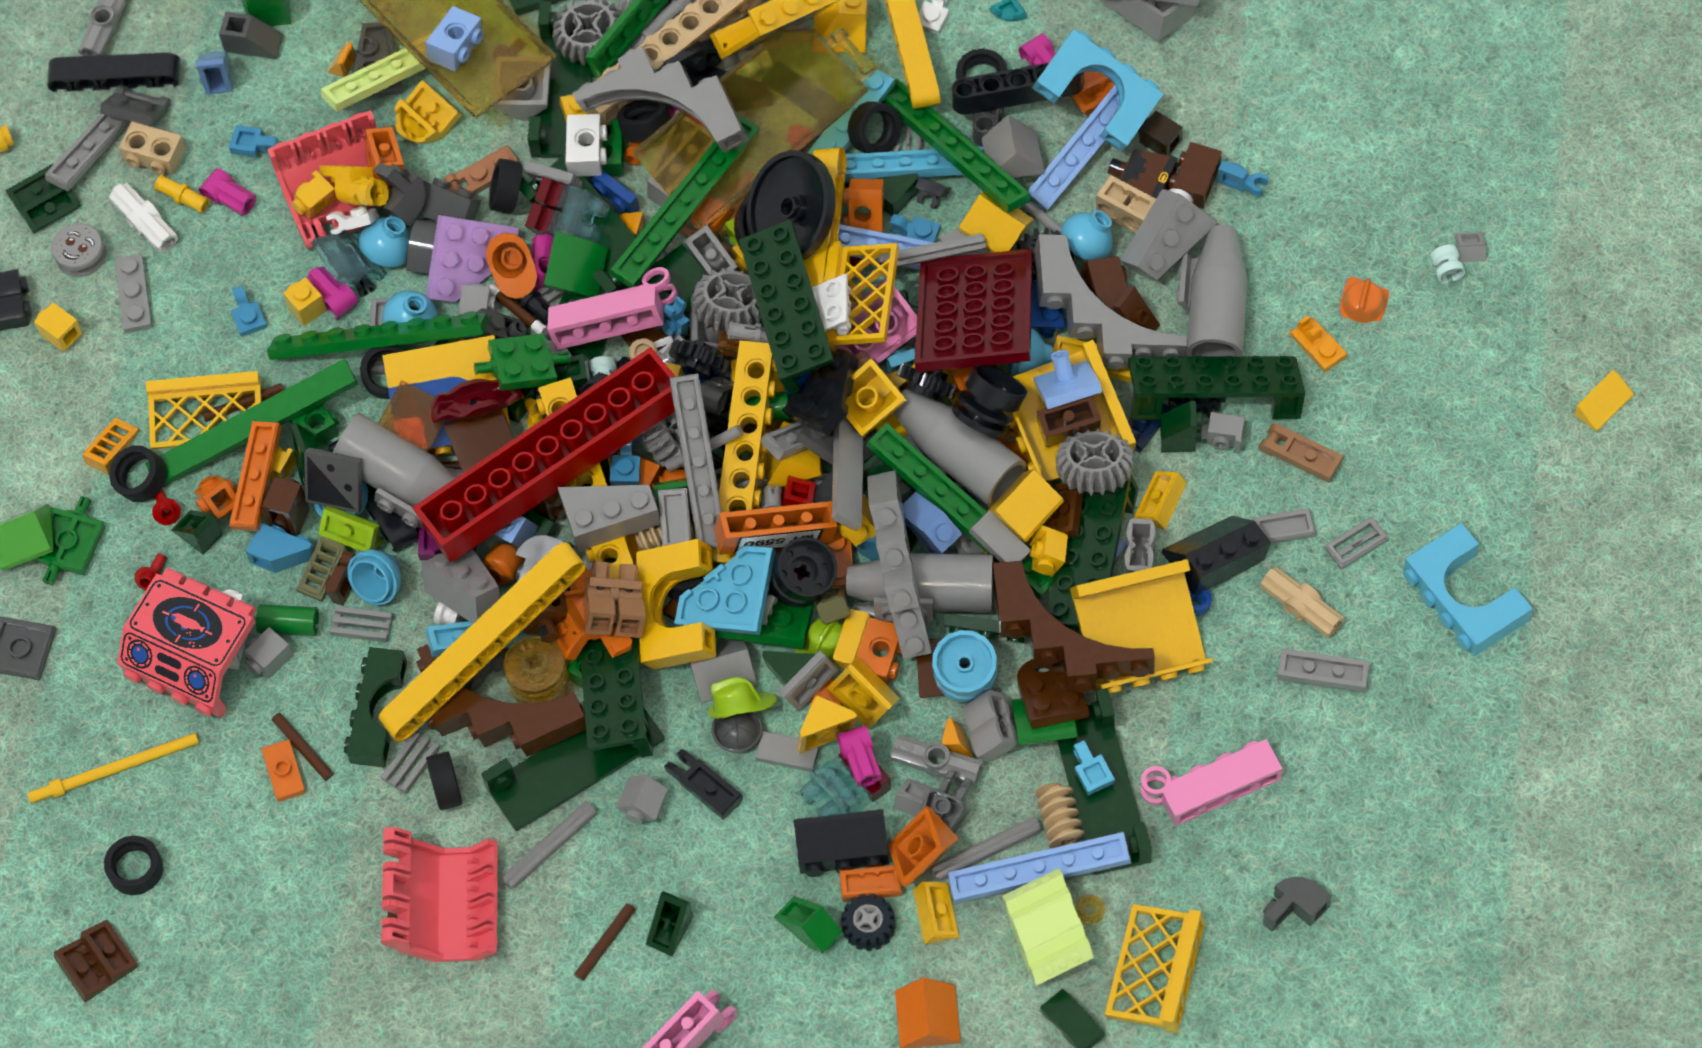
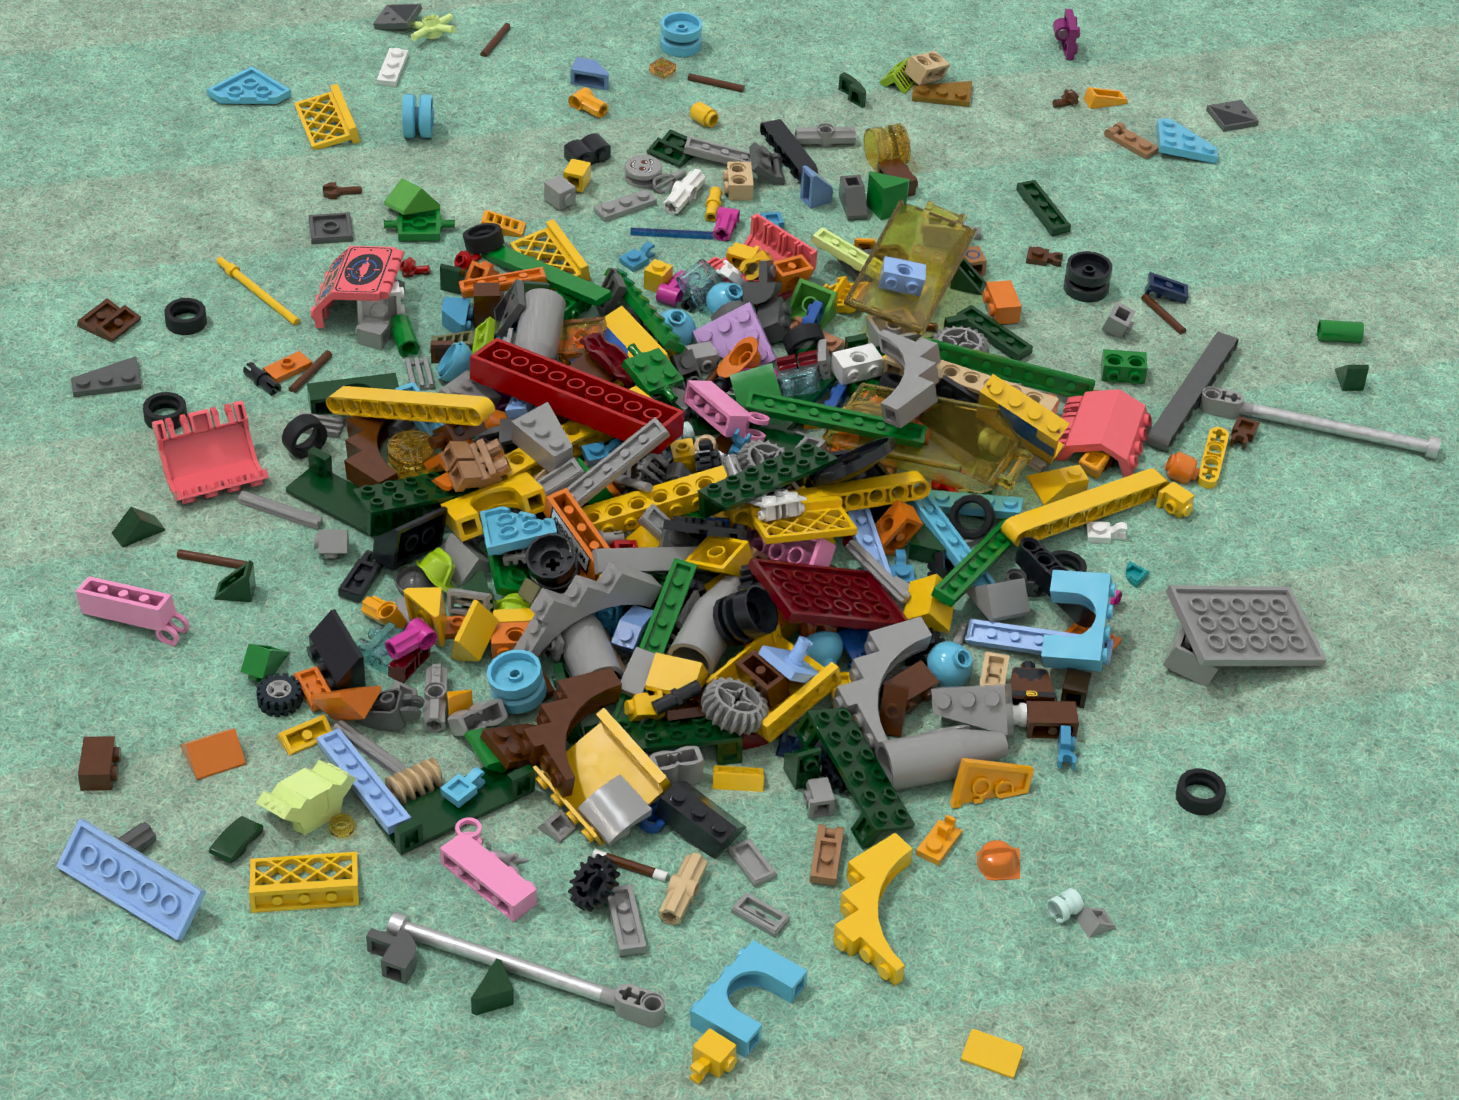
camera: 60 degrees right, 20 degrees down
(86, 357) = (559, 192): none -> light grey brick
(103, 221) = (673, 177): none -> light grey piece
(213, 259) = (671, 233): none -> clear blue bar
(215, 985) = (108, 379): none -> dark grey wing
(295, 805) = (261, 378): none -> black pin
(320, 354) = (615, 283): none -> dark grey plate
(326, 950) = (160, 401): none -> black tyre
(434, 153) = (806, 293): none -> bright green slope
(463, 156) = (814, 313): none -> blue plate
(518, 1014) = (136, 526): none -> dark green slope
(677, 712) = (410, 540): none -> black slope
(780, 777) = (383, 612): none -> light orange piece
(1064, 513) = (677, 697): none -> black pin
(1165, 696) = (557, 826): none -> light grey slope
(1185, 629) = (614, 810): none -> light grey slope
(1199, 756) = (510, 859): none -> light grey bar
(1248, 640) = (635, 866): none -> reddish brown bar
(1261, 887) = (628, 1000): none -> flat silver piece
(1263, 261) = (989, 779): none -> light orange wing
(1285, 685) = (594, 882): none -> black gear
(1342, 100) = (1198, 805): none -> black tyre
(1376, 820) = (494, 991): none -> dark green slope
(1382, 443) = (861, 928): none -> yellow arch
(1528, 645) = (713, 1055): none -> yellow brick

